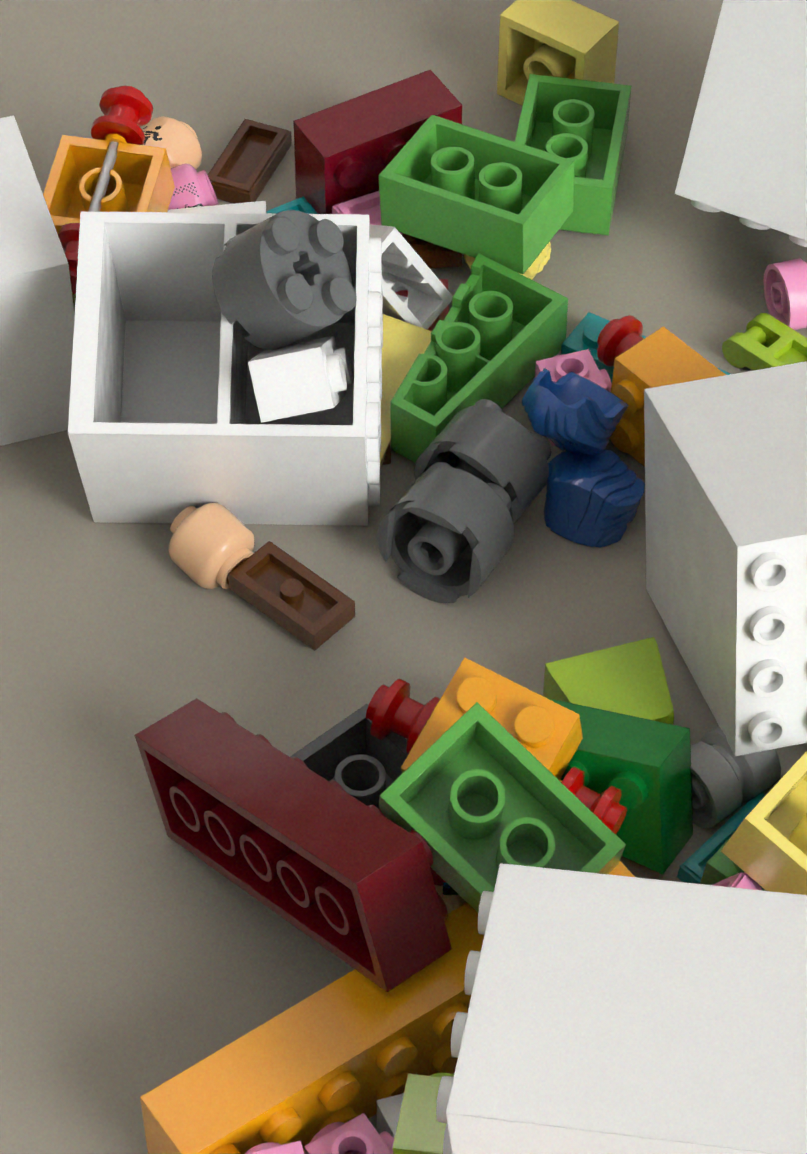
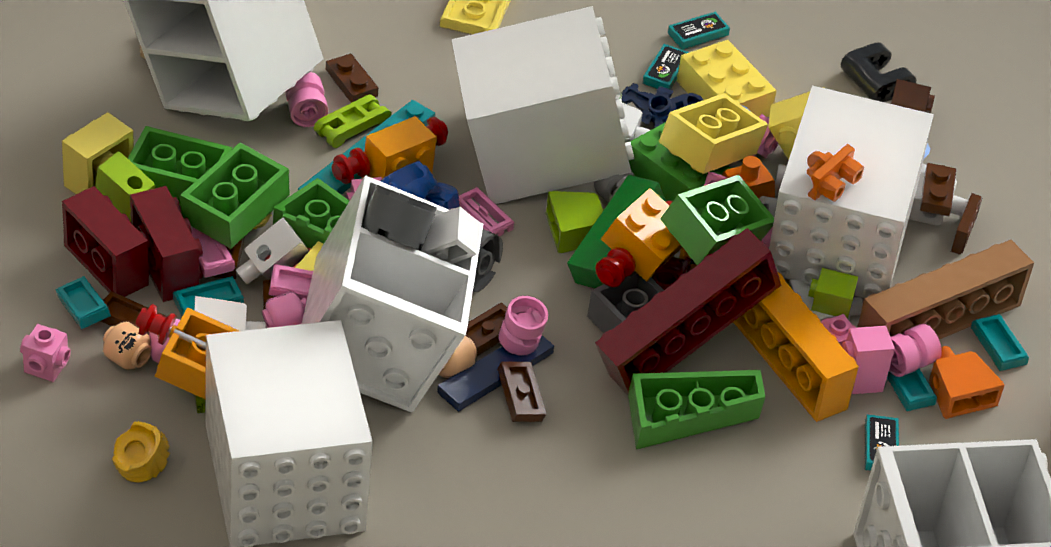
camera: 90 degrees left, 5 degrees down
(120, 891) = (692, 403): none -> bright green wedge
(135, 63) = (45, 352): none -> bright pink brick
(135, 649) = (521, 391): none -> reddish brown plate
(205, 621) = (483, 376): none -> dark blue tile
(253, 101) = (82, 302): none -> teal tile
(263, 613) = (523, 325): none -> bright pink wheel
(363, 60) = (105, 242): none -> dark red brick
(496, 86) = (120, 179): none -> lime torso
(544, 927) = (829, 169): none -> orange hips
(615, 583) = (481, 212): none -> bright pink tile

